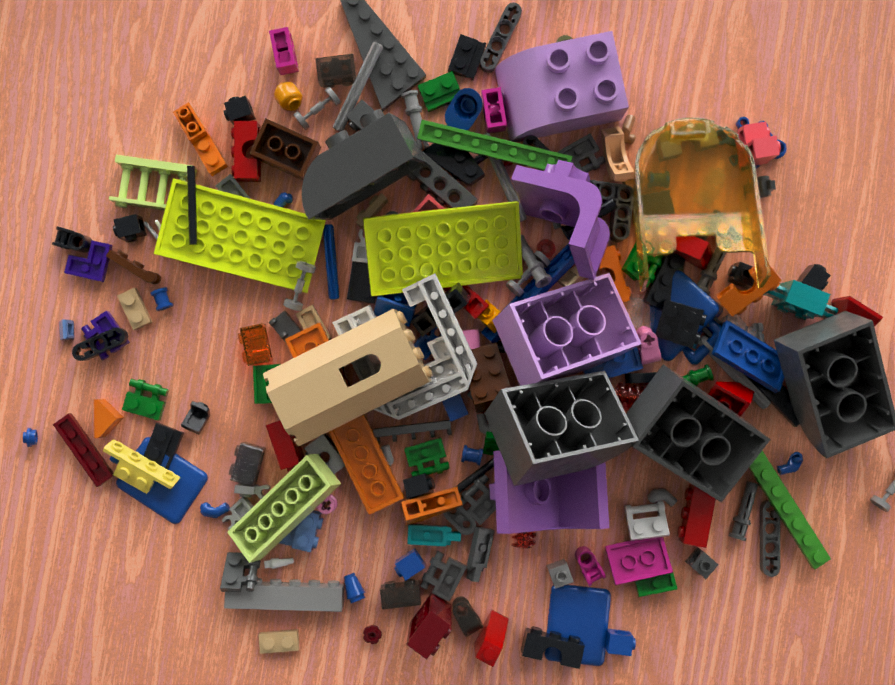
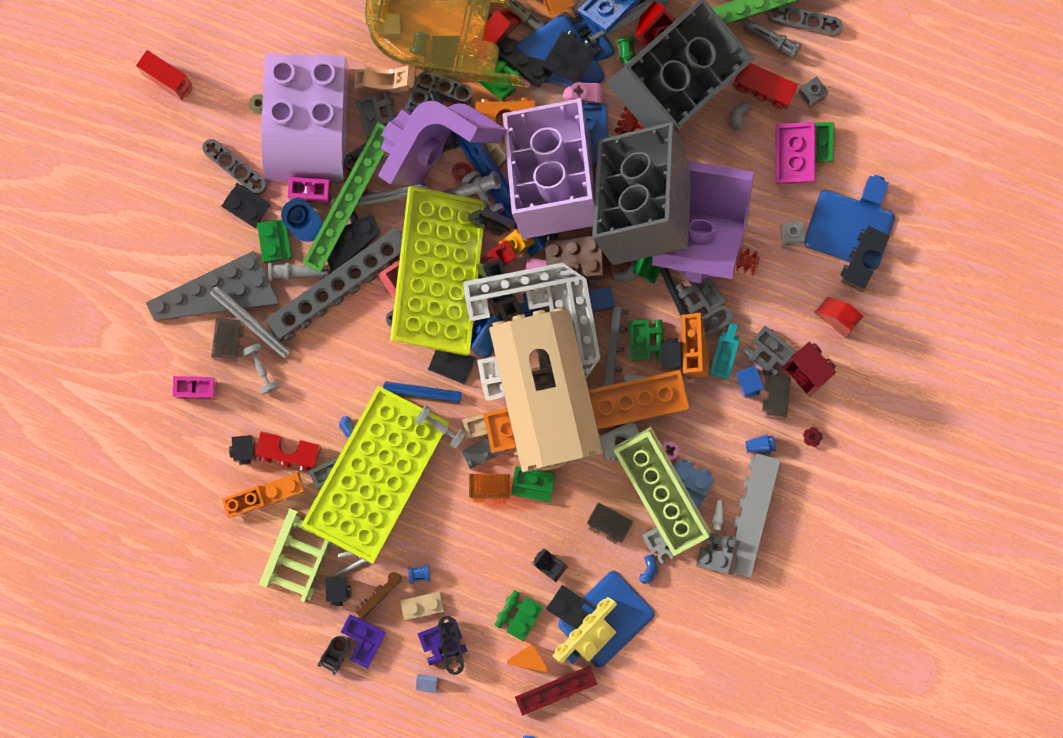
camera: 75 degrees left, 5 degrees down
(192, 205) = (333, 512): black bar -> none
(248, 491) = (637, 529): light grey plate -> none
(279, 641) = (798, 534): tan plate -> none
(284, 149) = (297, 409): reddish brown brick -> none
(285, 448) = (598, 476): red brick -> none
(288, 96) = (241, 395): light orange head -> none
(359, 165) = (338, 328): dark grey brick -> none
(359, 250) = (418, 356): white plate -> none
(376, 205) = (374, 331): tan plate -> none
(467, 618) = (820, 334): clear smoke piece -> none
(472, 455) = (653, 294): blue bush -> none
(479, 552) = (754, 309): dark grey hinge -> none
(503, 289) = (491, 221): none -> black plate
(590, 568) = (795, 203): dark pink piece -> none
(627, 127) = (359, 62): medium nougat arm -> none
(639, 377) = (614, 109): black beam -> none
(646, 527) = (765, 136): white plate -> none

